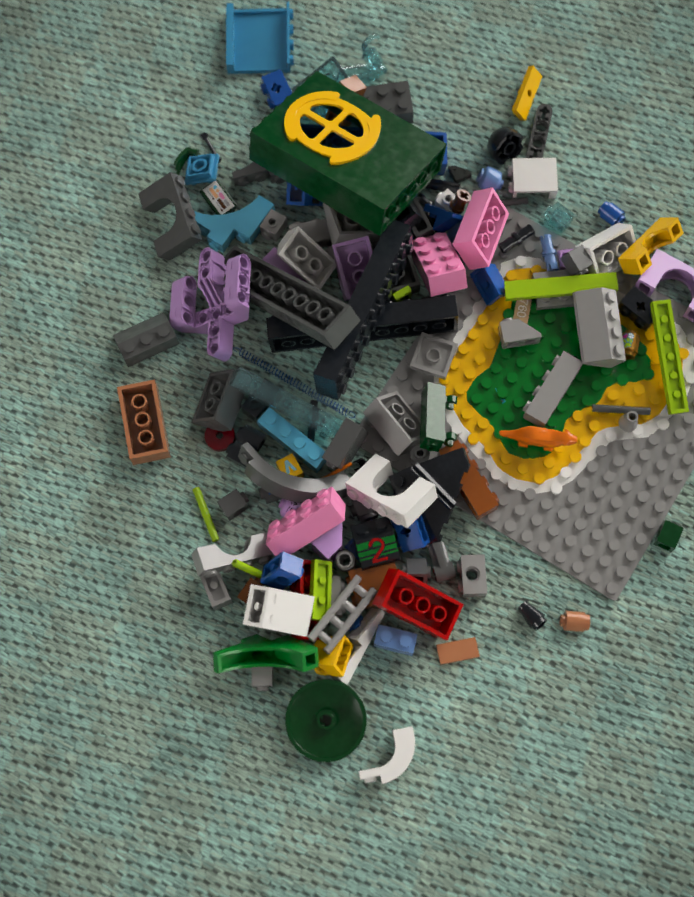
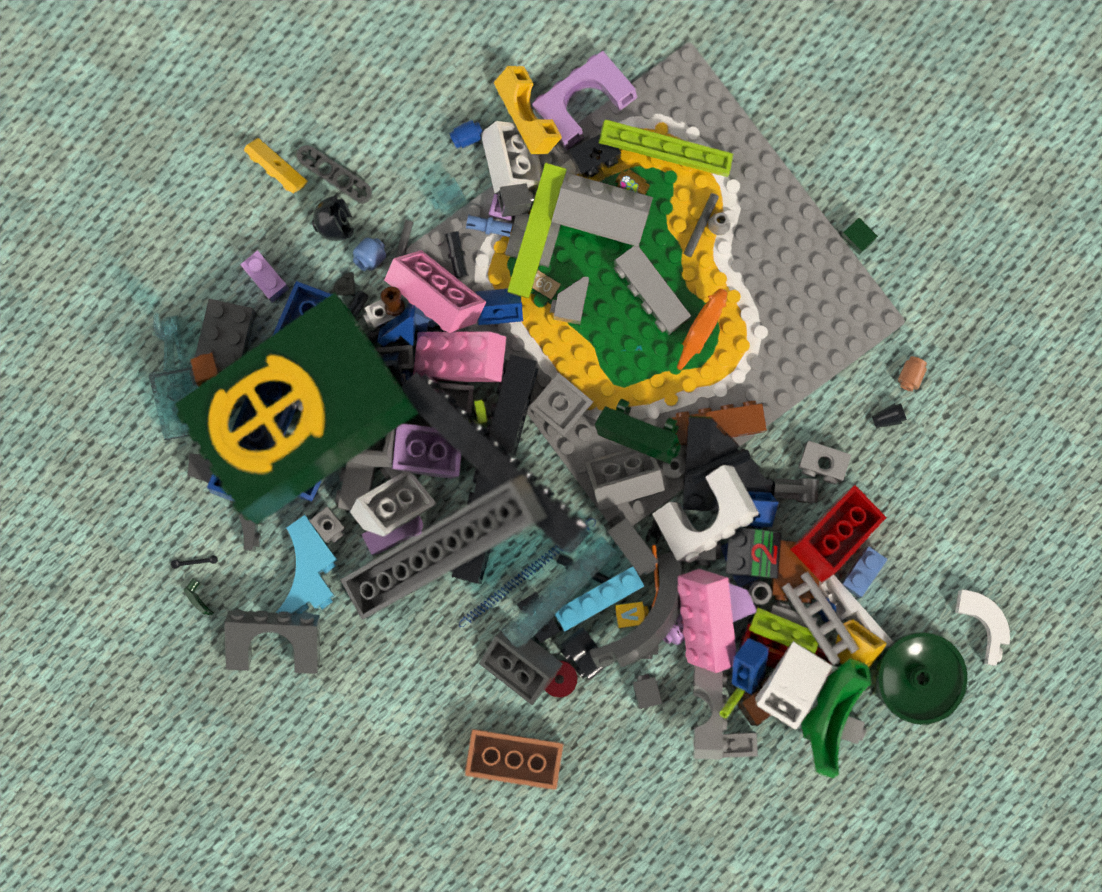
camera: 70 degrees left, 10 degrees up
(146, 339) = (409, 723): dark grey slope -> none
(205, 513) = (644, 726): lime piece -> none
(207, 173) = (232, 577): dark azure piece -> none
(218, 198) = (268, 577): slope -> none
(226, 304) = (419, 621): lavender piece -> none
(258, 40) = (73, 452): dark azure panel -> none
(275, 87) = (168, 453): blue brick -> none
(417, 568) = (798, 520): dark grey brick -> none
(441, 113) = (264, 276): none -> lavender brick
(457, 651) = (897, 510): nougat tile -> none
(533, 176) = (386, 203): white panel -> none

